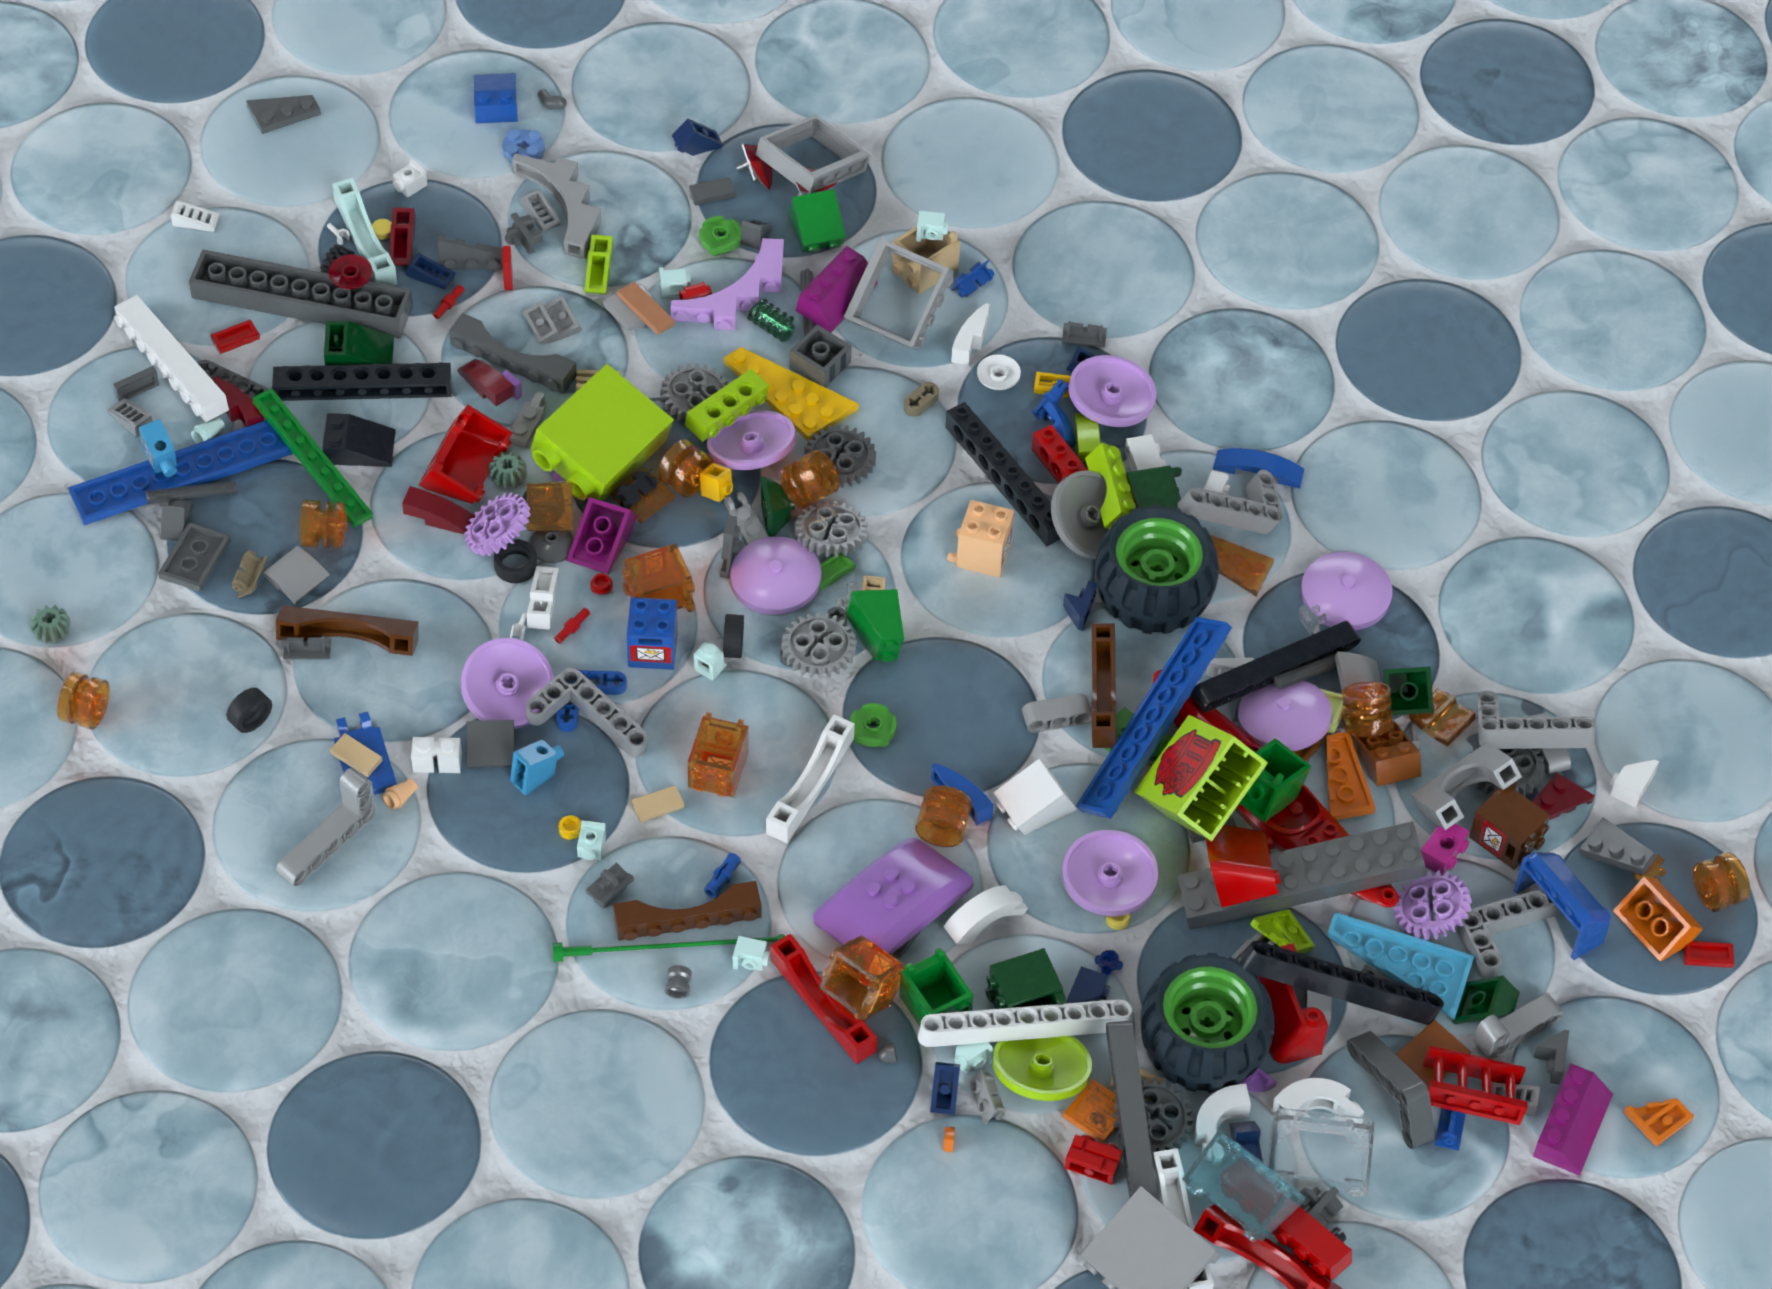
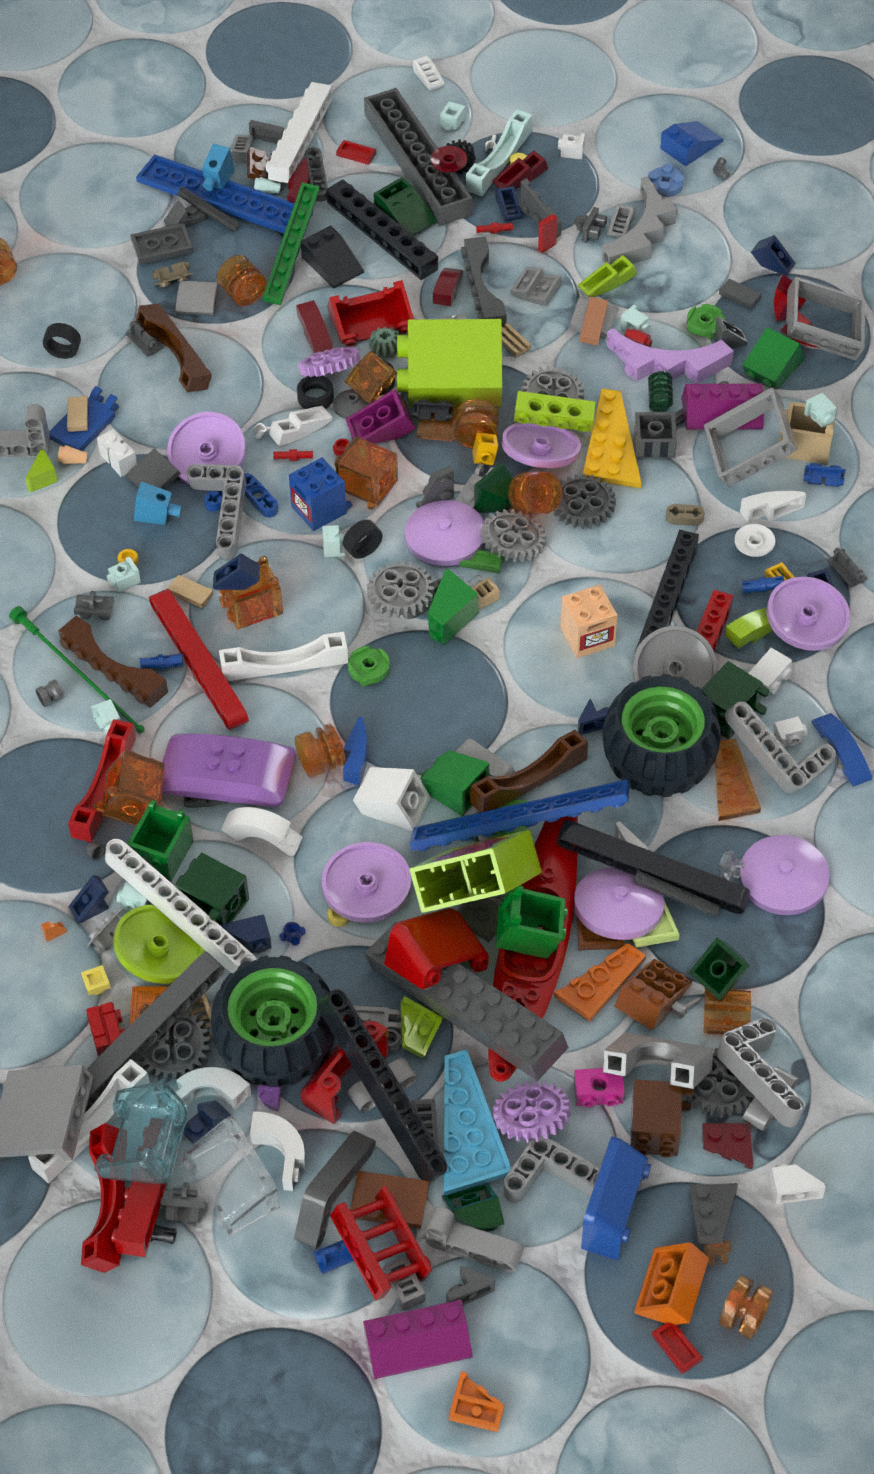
camera: 55 degrees right, 0 degrees up
(50, 624) = (43, 214): sand green gear -> none
(173, 415) = (257, 163): none -> plate
(275, 241) = (450, 120): none -> light aqua brick
(283, 111) = (560, 57): dark grey wing -> none
(398, 827) = (41, 473): none -> lime slope
(517, 387) = (457, 299): medium lavender tile -> none
(709, 746) = (237, 574): none -> dark blue slope
(746, 843) = (199, 659): none -> red beam
(1037, 1134) = (95, 980): none -> light yellow tile
(1061, 423) = (747, 602): blue slope -> none
(1062, 740) = (452, 778): none -> green slope
(1119, 499) = (722, 649): lime arch -> none
(1356, 668) = (704, 927): light grey slope -> none
(1367, 709) = (671, 950): clear orange wheel -> none

